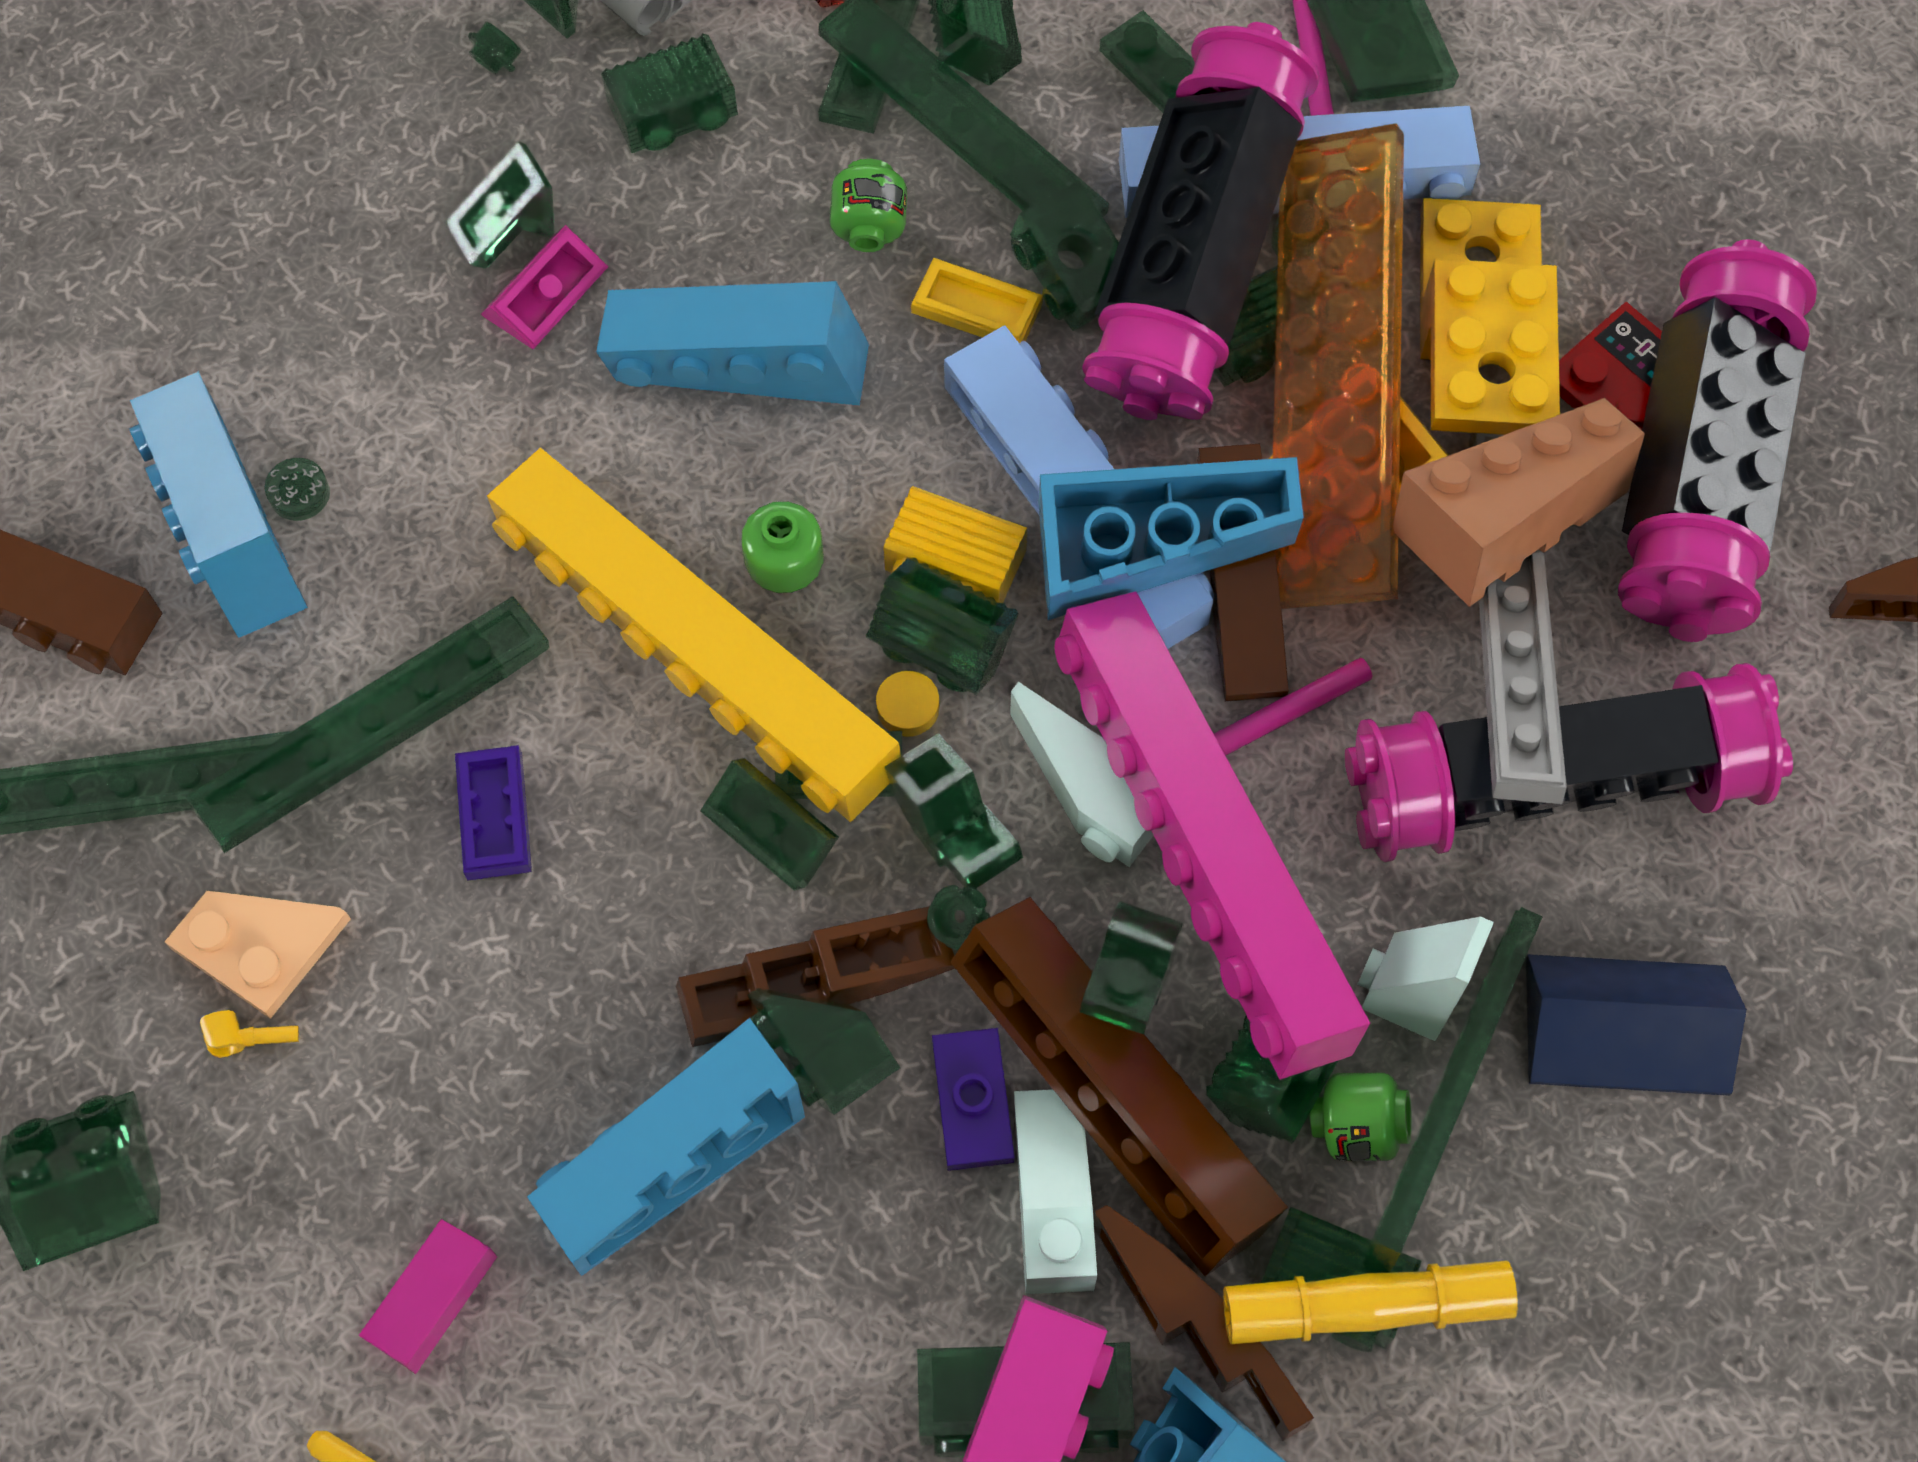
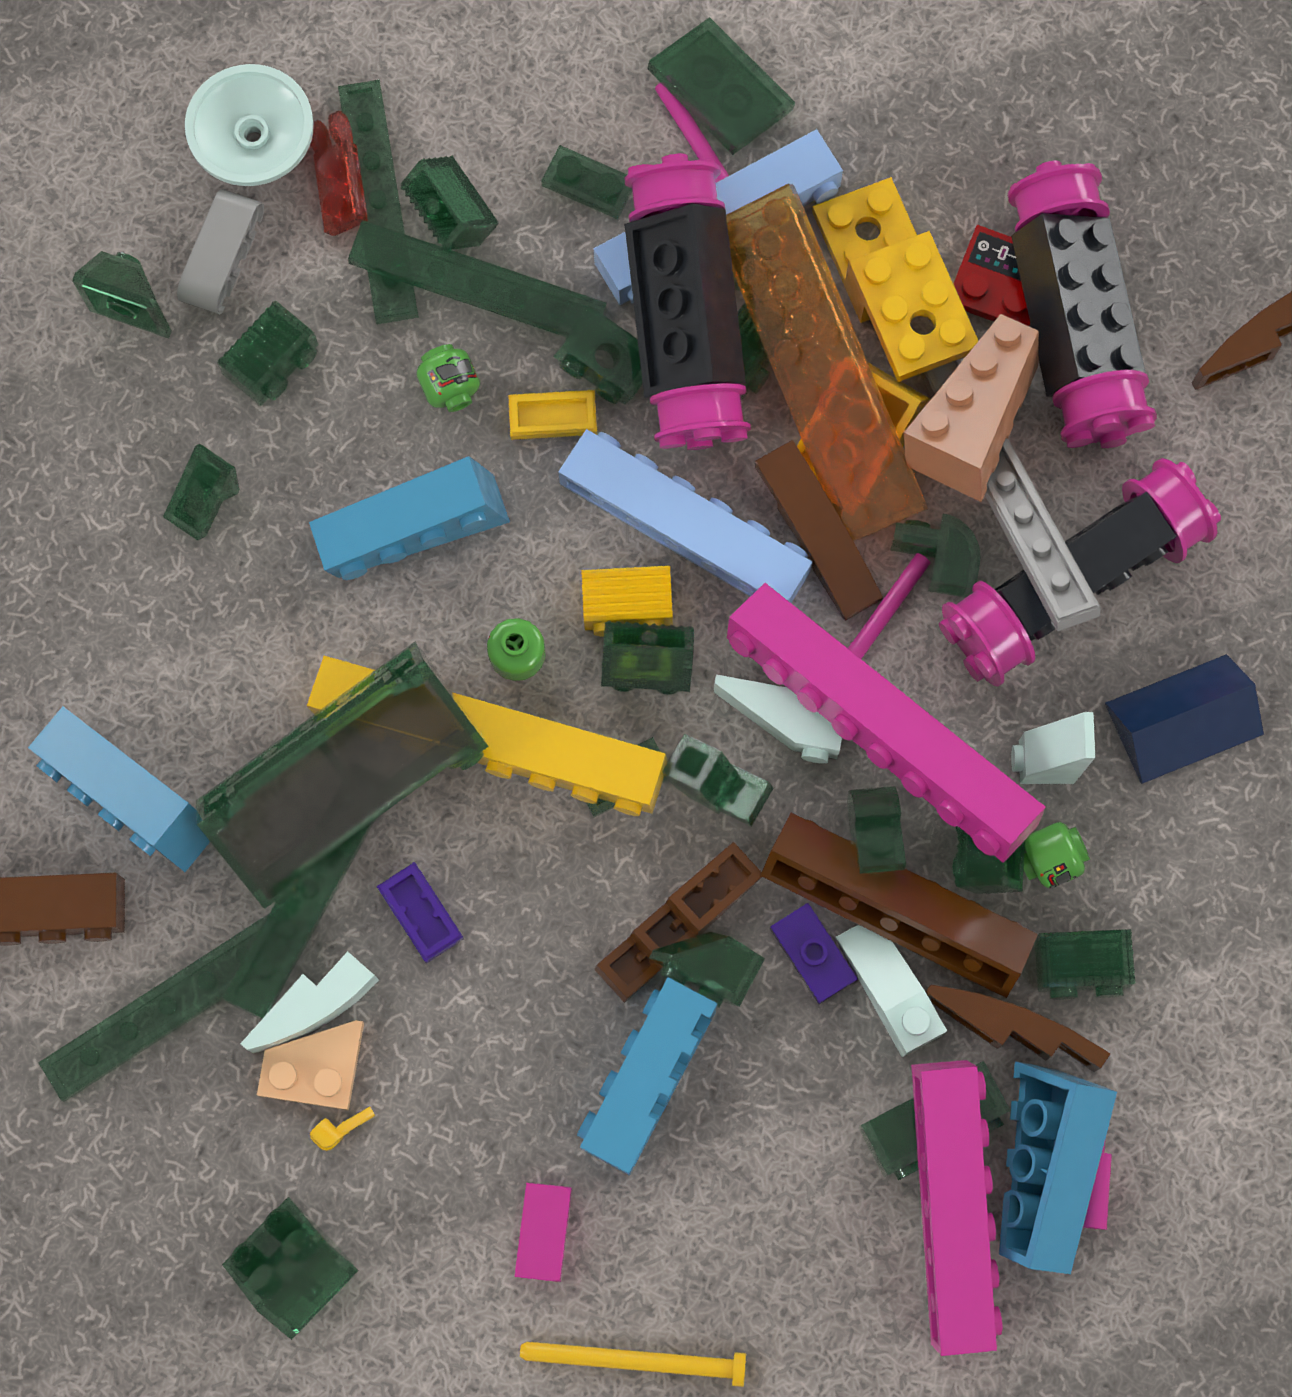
camera: 25 degrees left, 10 degrees up
(292, 861) = (311, 1006): none -> light aqua slope
(297, 489) = (167, 753): clear green tile -> none
(471, 588) = (337, 774): none -> clear smoke windscreen
(493, 48) = (124, 372): clear green plate -> none
(545, 288) = (255, 533): dark pink slope -> none
(769, 823) = (601, 838): clear green plate -> none
(908, 703) = (646, 716): yellow tile -> none
(943, 910) = (752, 856): clear green plate -> none
(1160, 524) = (753, 537): dark azure wedge -> none
(1370, 1302) = (1114, 971): yellow piece -> none
(1404, 664) = (952, 548): none -> clear green brick
(1451, 1093) = (1104, 821): clear green tile -> none

